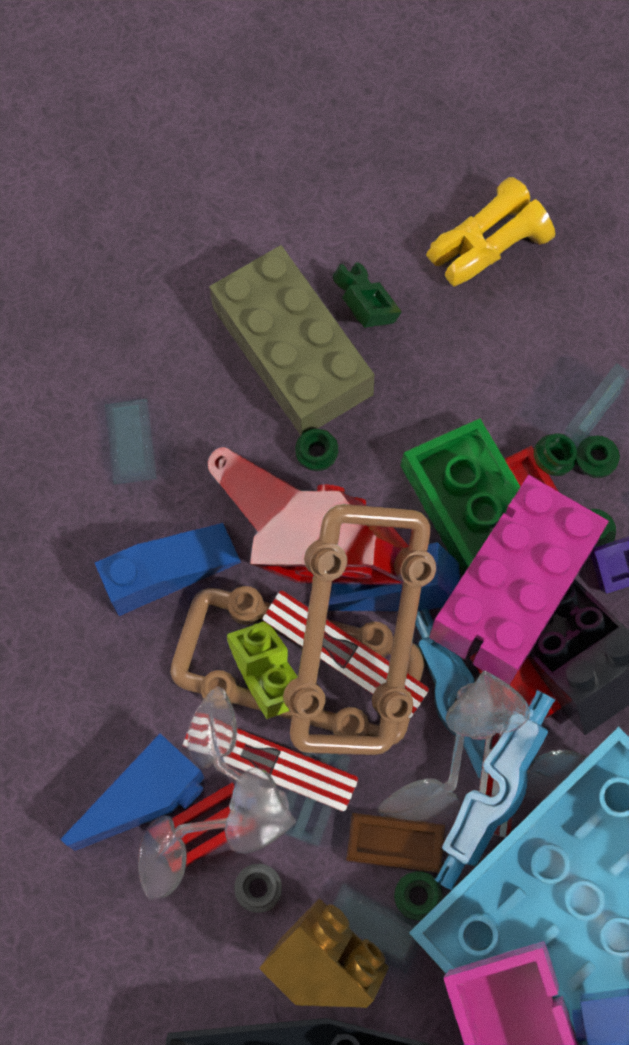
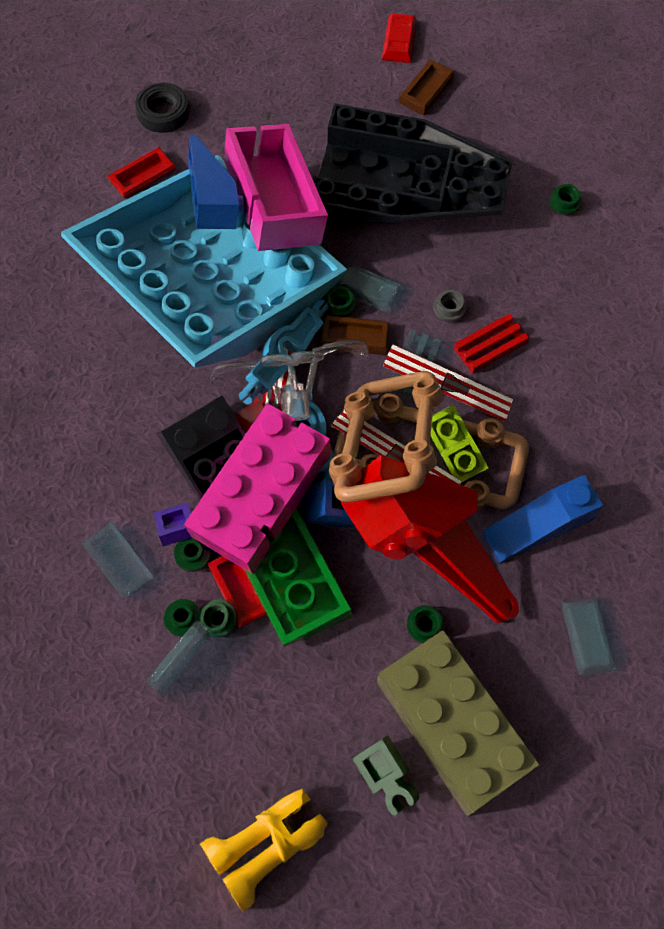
camera: 175 degrees right, 5 degrees down
(146, 790) = (537, 357): blue slope -> none
(257, 805) = (457, 344): clear plant -> none
(325, 961) = (403, 246): pearl gold slope -> none

